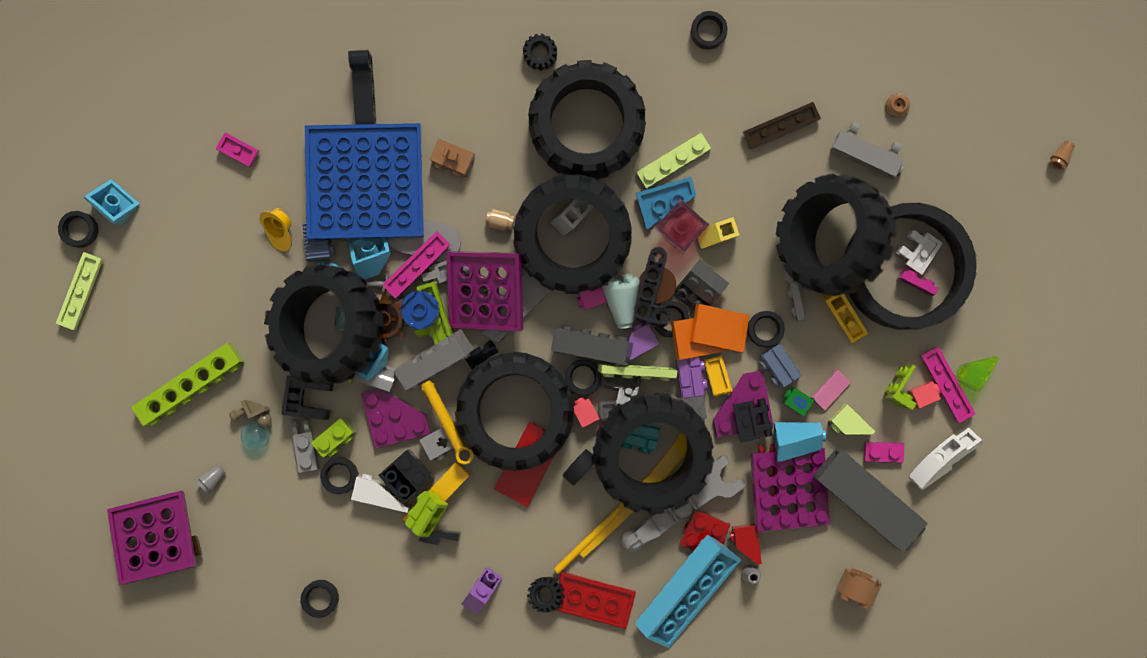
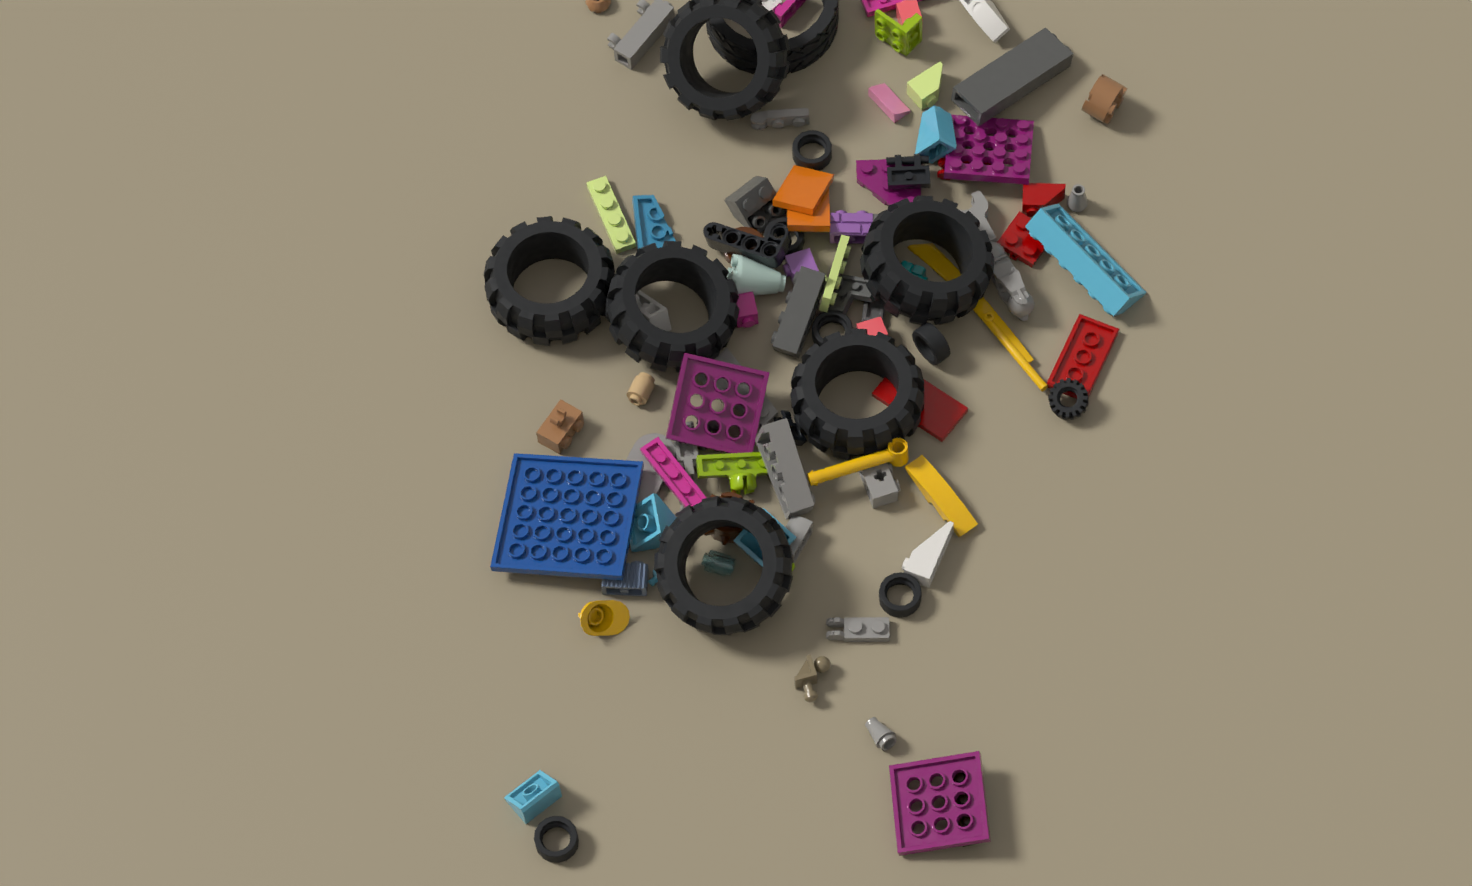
camera: 80 degrees left, 25 degrees down
(79, 291) = (630, 848): yellowish green plate -> none
(144, 408) = (784, 793): lime brick -> none
(237, 149) = (500, 650): dark pink plate -> none
(254, 436) = (838, 678): clear light blue plate -> none
(294, 399) = (800, 624): black brick -> none
(305, 596) = (1044, 620): black tyre -> none
(333, 437) = (854, 591): lime brick -> none
(363, 86) = (458, 506): black beam -> none
(392, 418) = (844, 532): magenta plate -> none
(406, 476) = (910, 518): black slope -> none
(420, 310) = (725, 473): blue tile -> none
(426, 513) = (957, 498): lime brick -> none
(435, 536) = (987, 500): black slope -> none
(481, 591) = (1056, 464): medium lavender slope -> none
(544, 41) = (461, 314): black tyre -> none
(681, 226) = (686, 210): clear pink slope -> none
(712, 16) = (473, 146): black tyre -> none
(717, 376) = (856, 201): yellow tile -> none
(718, 233) = (699, 178): light yellow slope -> none
(780, 366) = (854, 142): sand blue brick -> none
(781, 125) = (596, 107): dark brown plate -> none
(797, 401) = (895, 131): green brick -> none
(846, 316) = (809, 76): yellow slope -> none
(883, 452) = (964, 61): dark pink plate -> none

